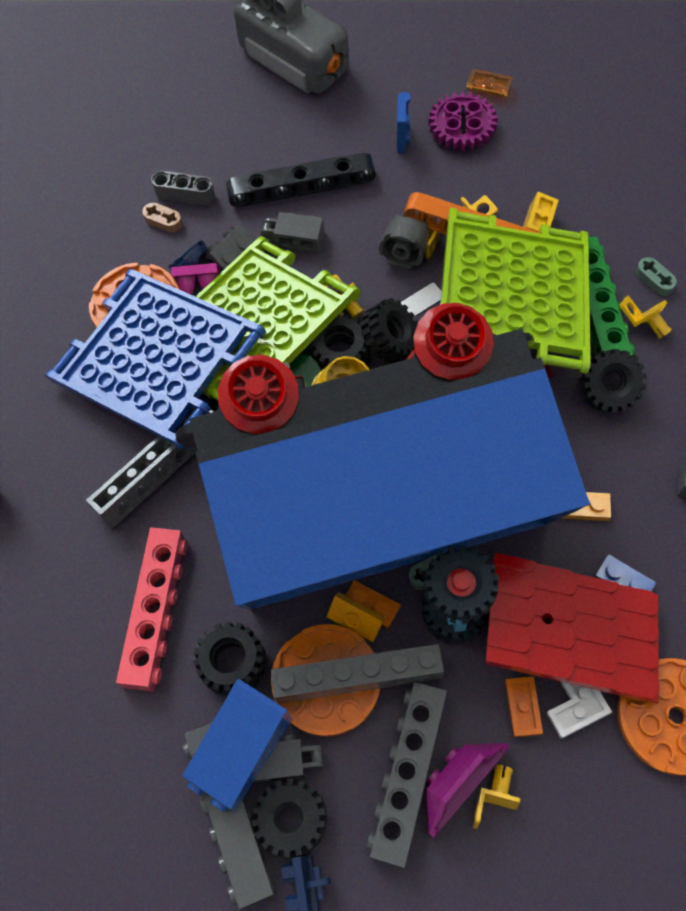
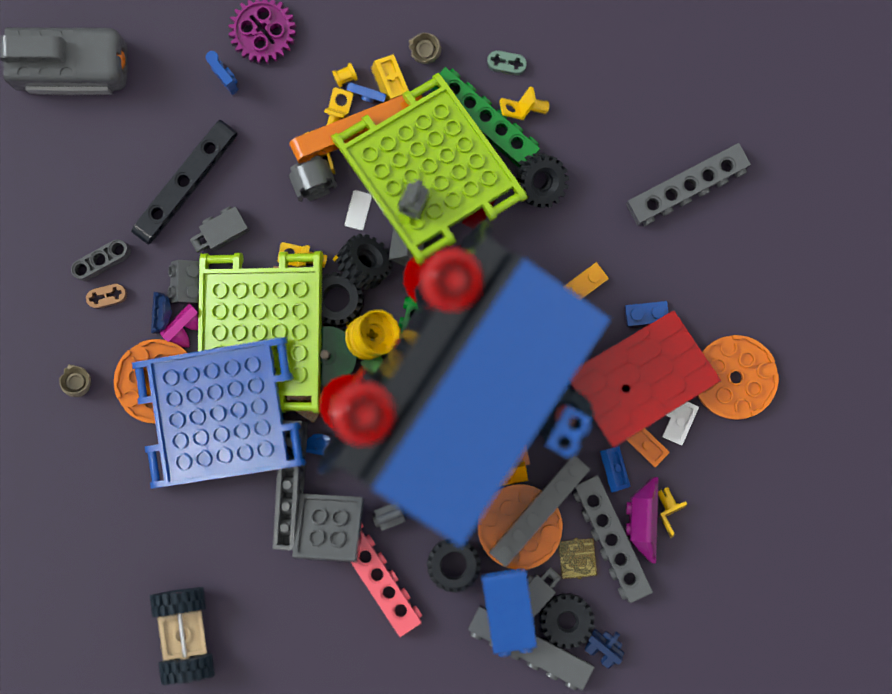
camera: 45 degrees left, 20 degrees up
(76, 256) = (75, 381): none -> dark tan hair
(149, 523) = (328, 528): none -> dark grey plate
(210, 564) = (388, 516): none -> dark grey brick
(356, 764) = (577, 558): none -> clear yellow piece
(446, 586) = (563, 429): none -> blue brick
(470, 703) = (615, 469): none -> blue plate
(479, 287) = (414, 199): none -> dark grey brick
(502, 192) = (345, 75): none -> yellow bush
(508, 212) = (367, 93): none -> plate
(591, 216) = (425, 48): none -> dark tan hair

